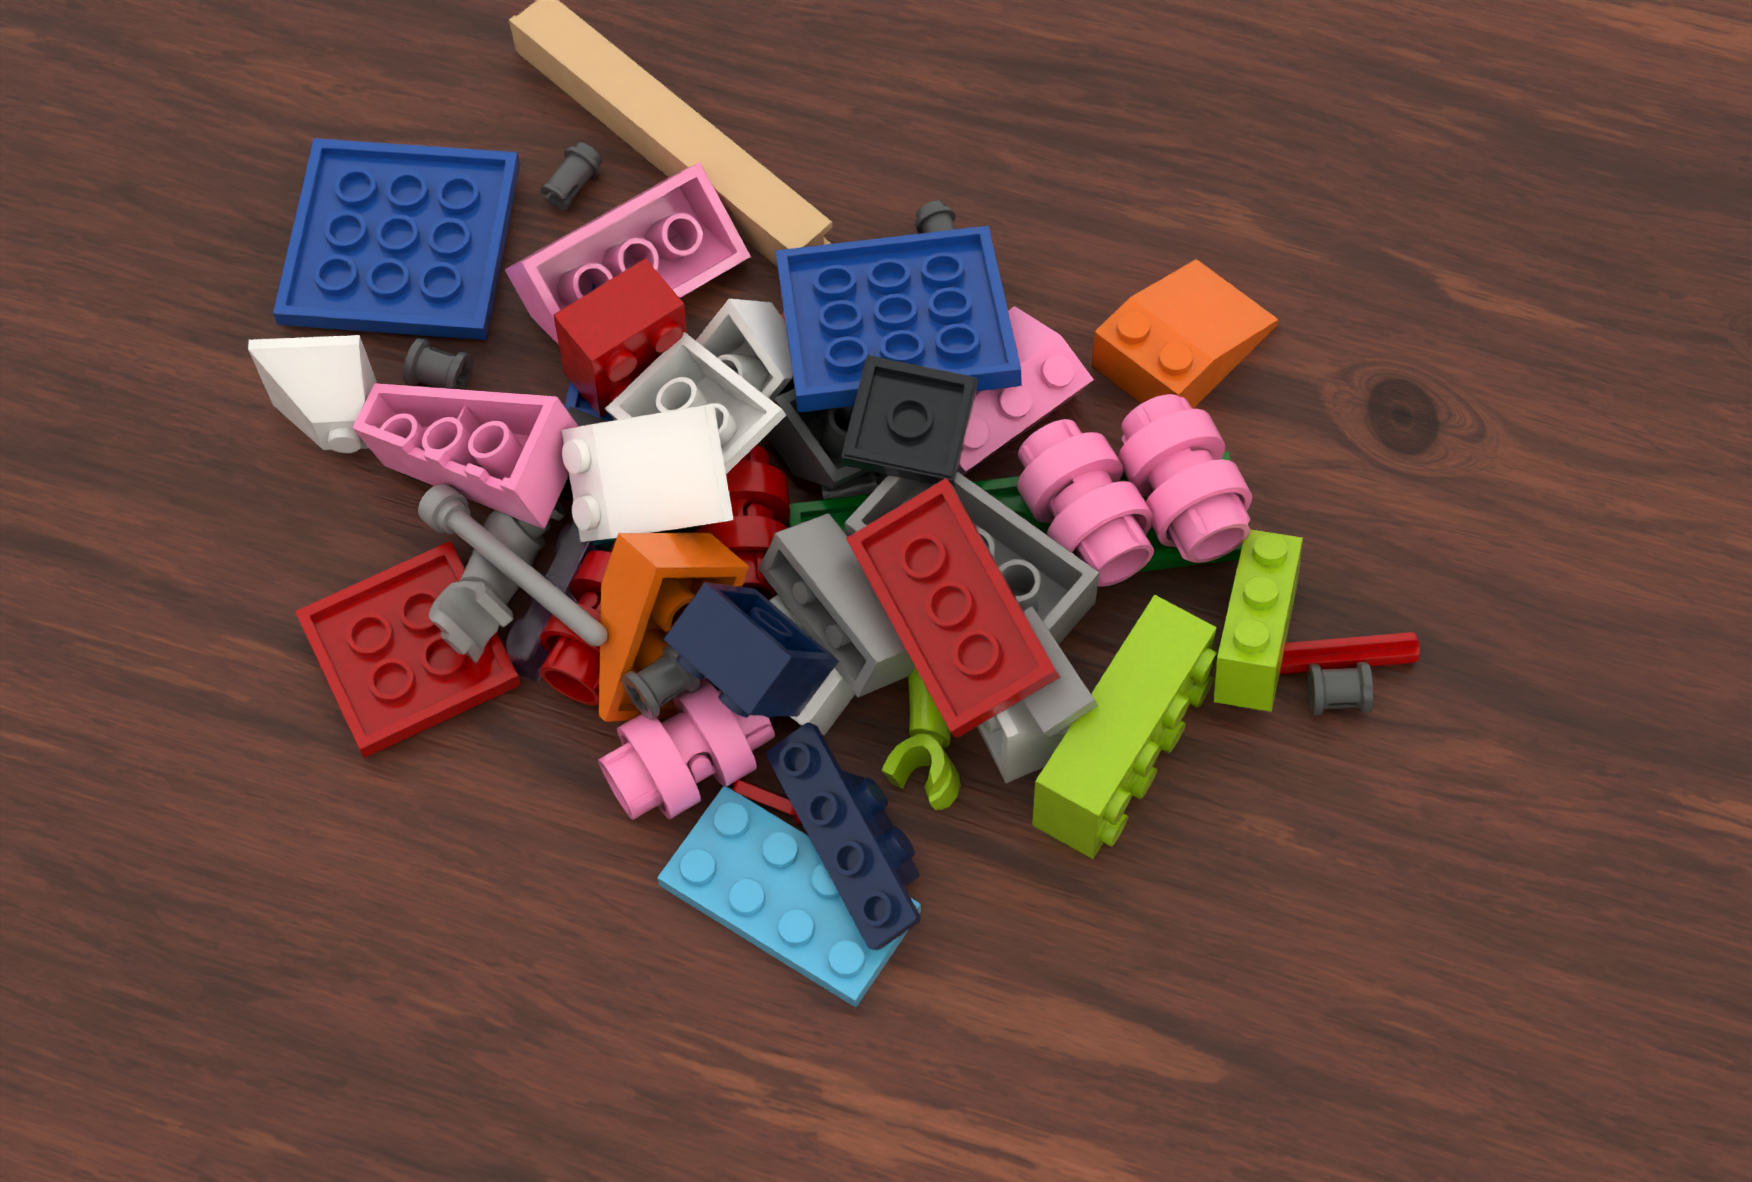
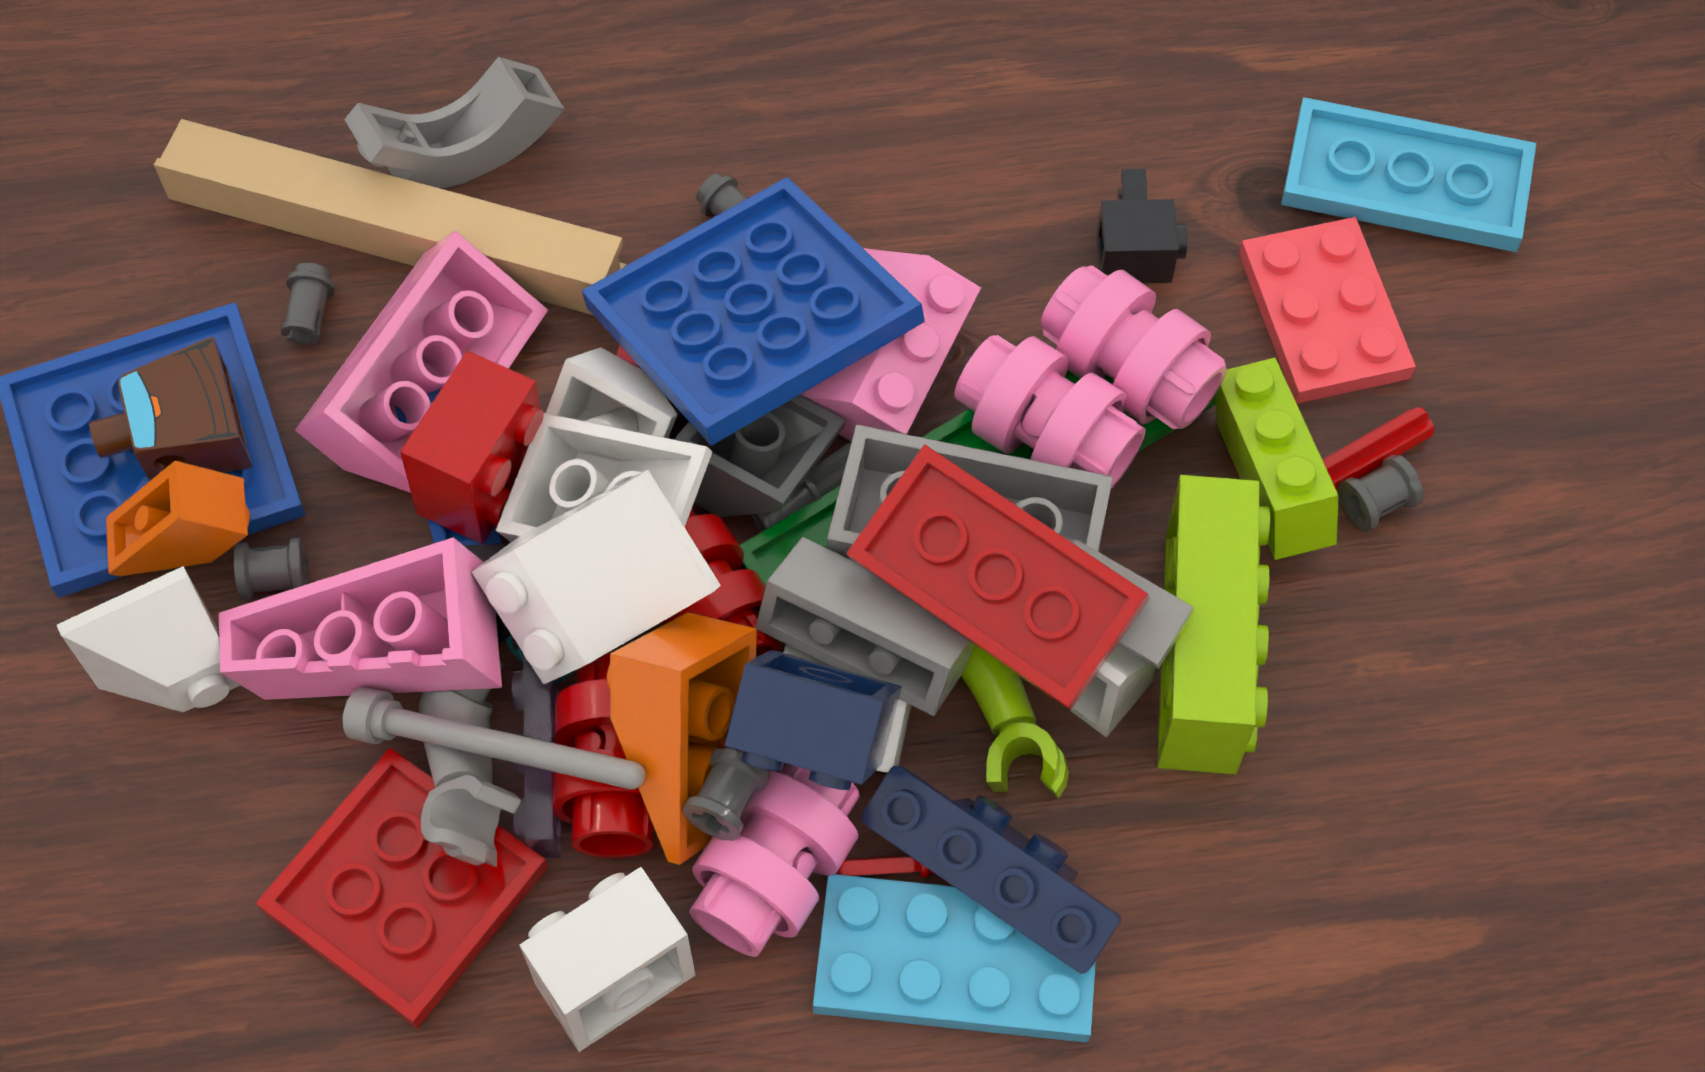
camera: 30 degrees left, 0 degrees up
(383, 302) = (177, 521): none -> orange slope
(425, 222) = (177, 412): none -> reddish brown torso
(517, 767) = (608, 957): none -> white brick
(756, 93) = (466, 138): none -> light grey arch
(909, 421) = (840, 404): black tile -> none
(1179, 336) = (1029, 215): orange slope -> none
(1258, 392) = (1139, 232): none -> black brick
(1387, 521) = (1326, 310): none -> coral plate
(1525, 437) = (1410, 174): none -> medium azure plate

